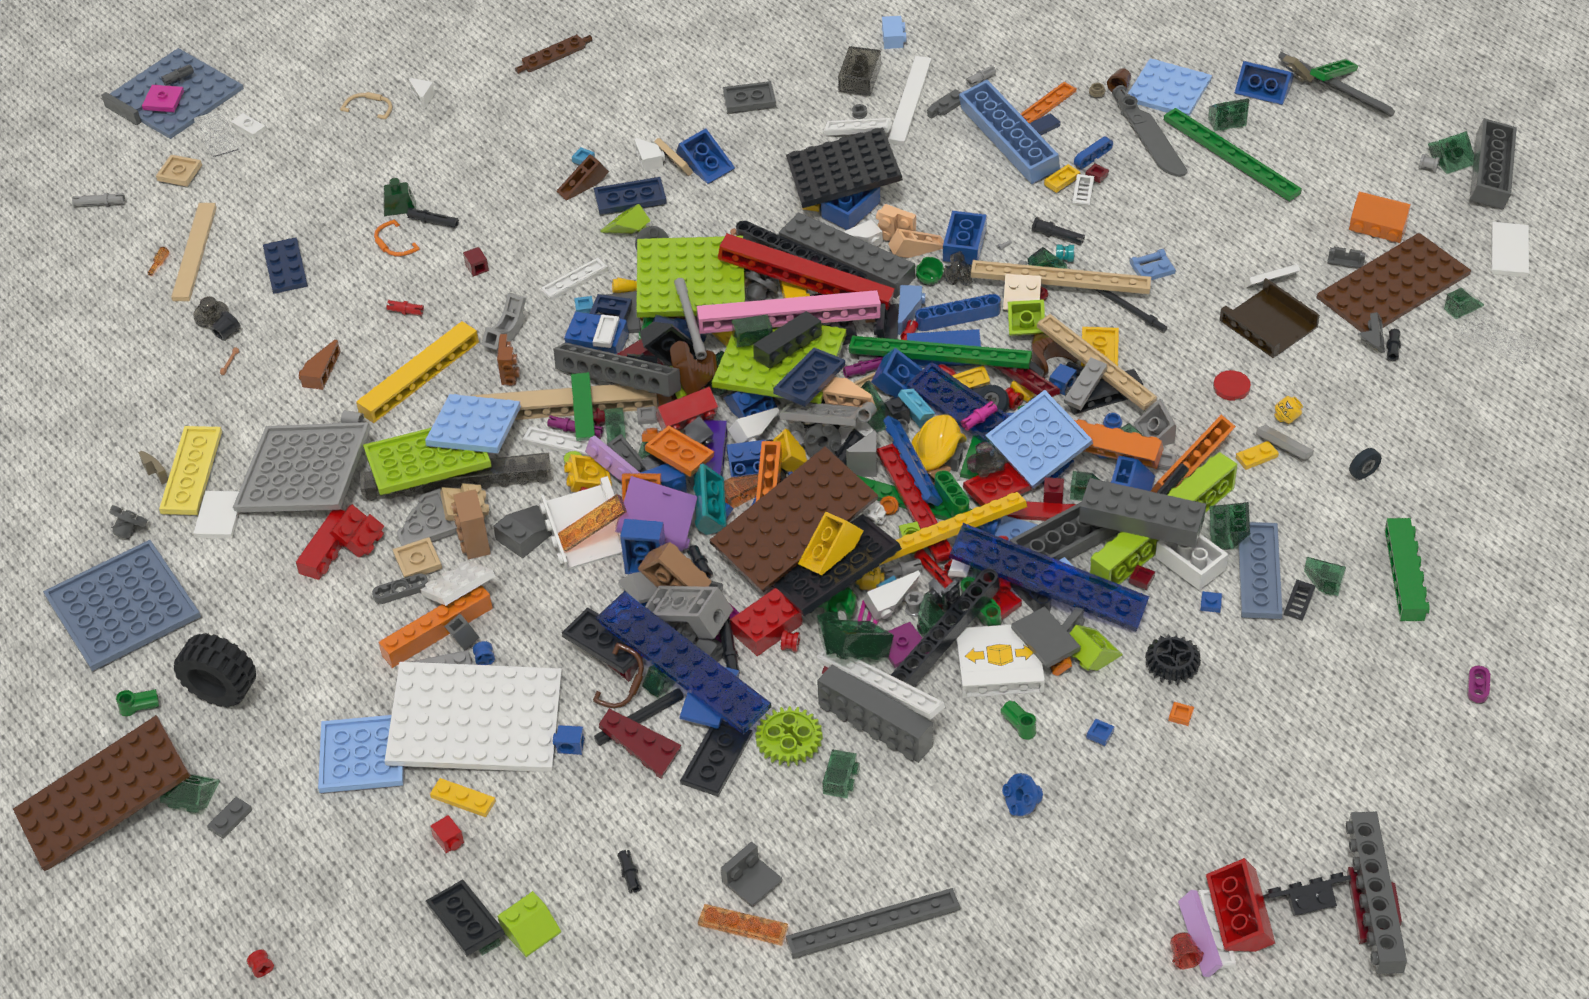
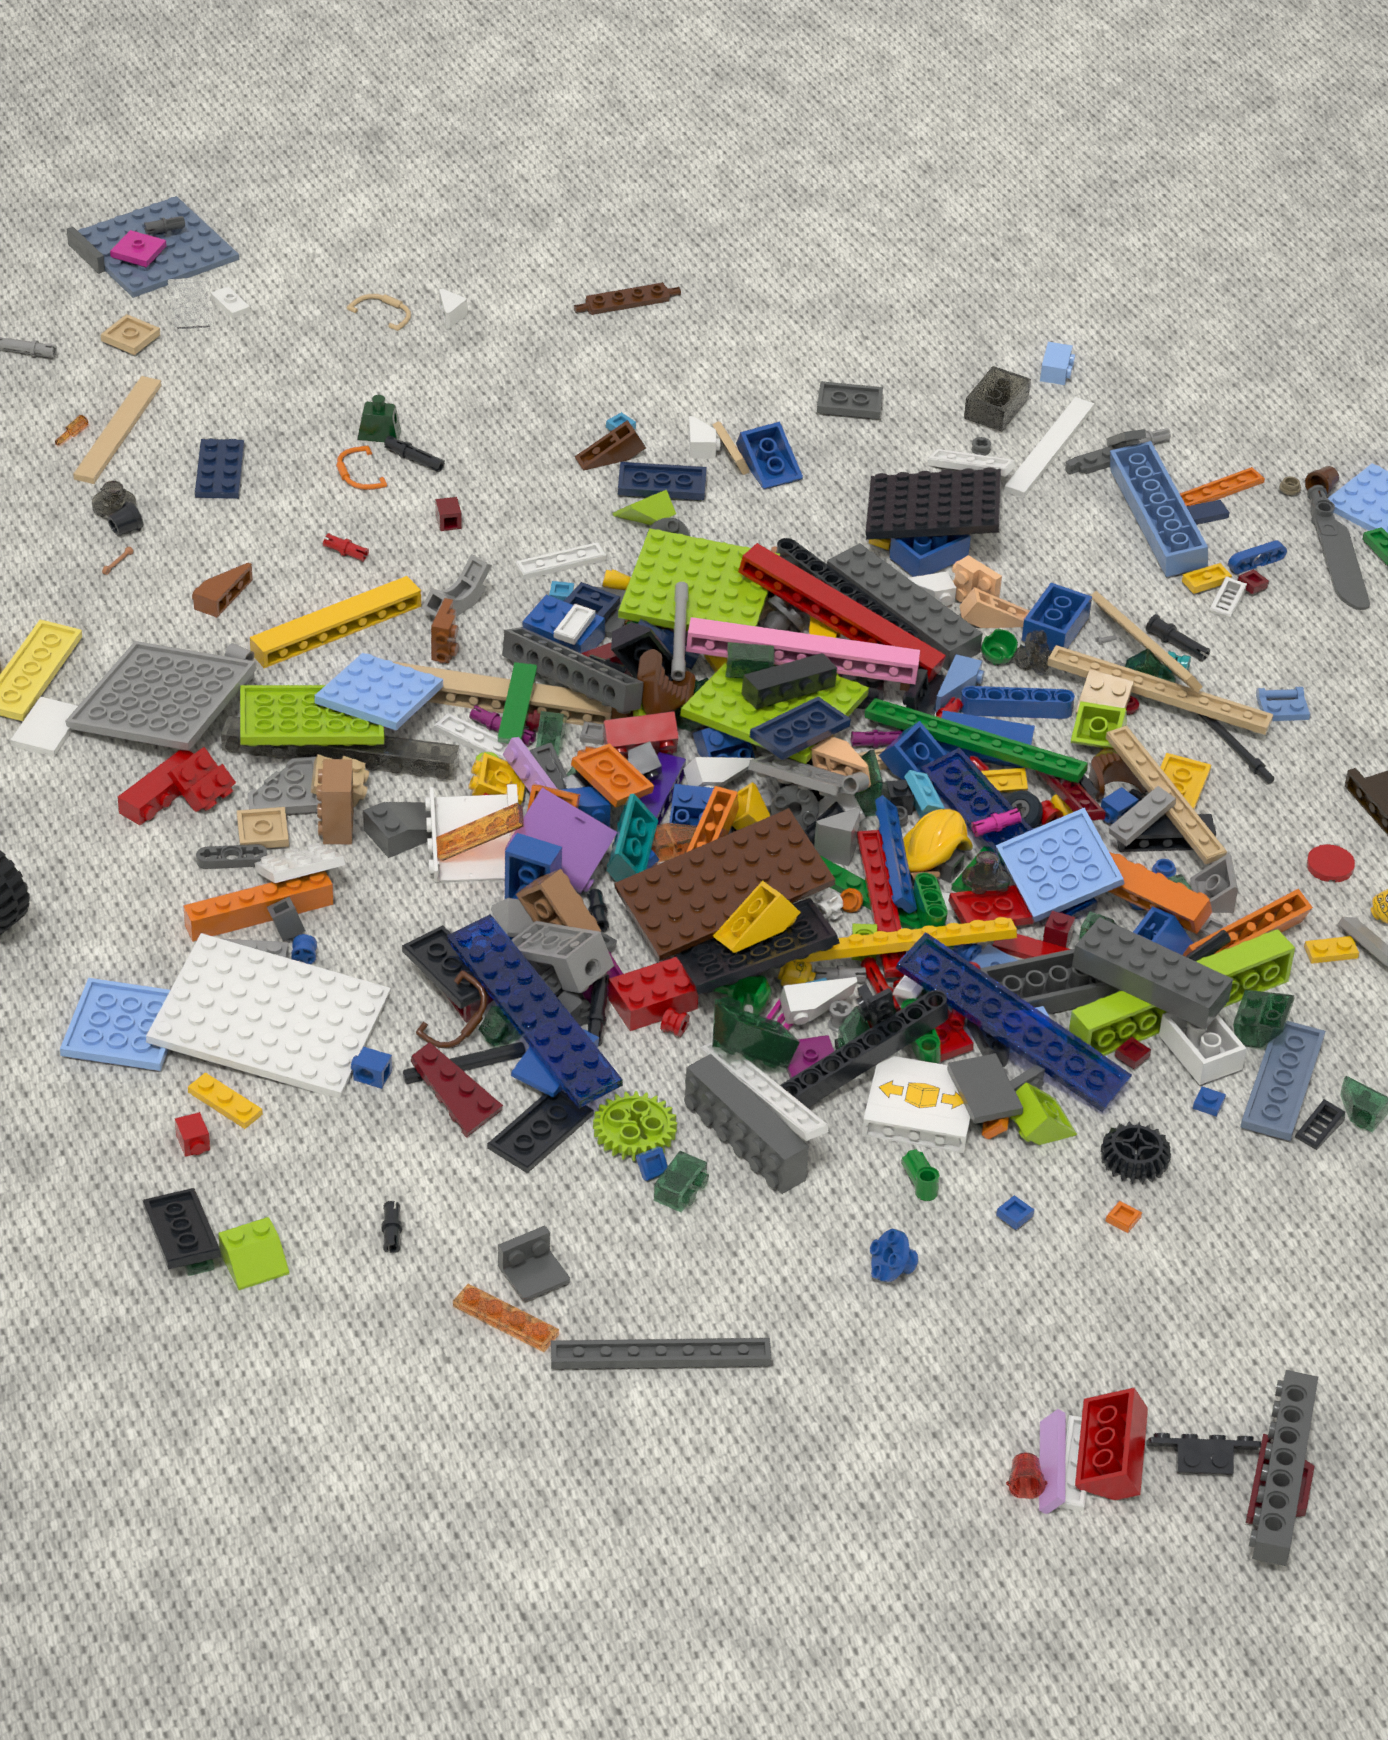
camera: 10 degrees right, 5 degrees down
(813, 764) = (652, 1163): none -> blue tile
(967, 81) = (1126, 438): none -> dark grey plate
(1059, 252) = (1146, 641): none -> tan tile

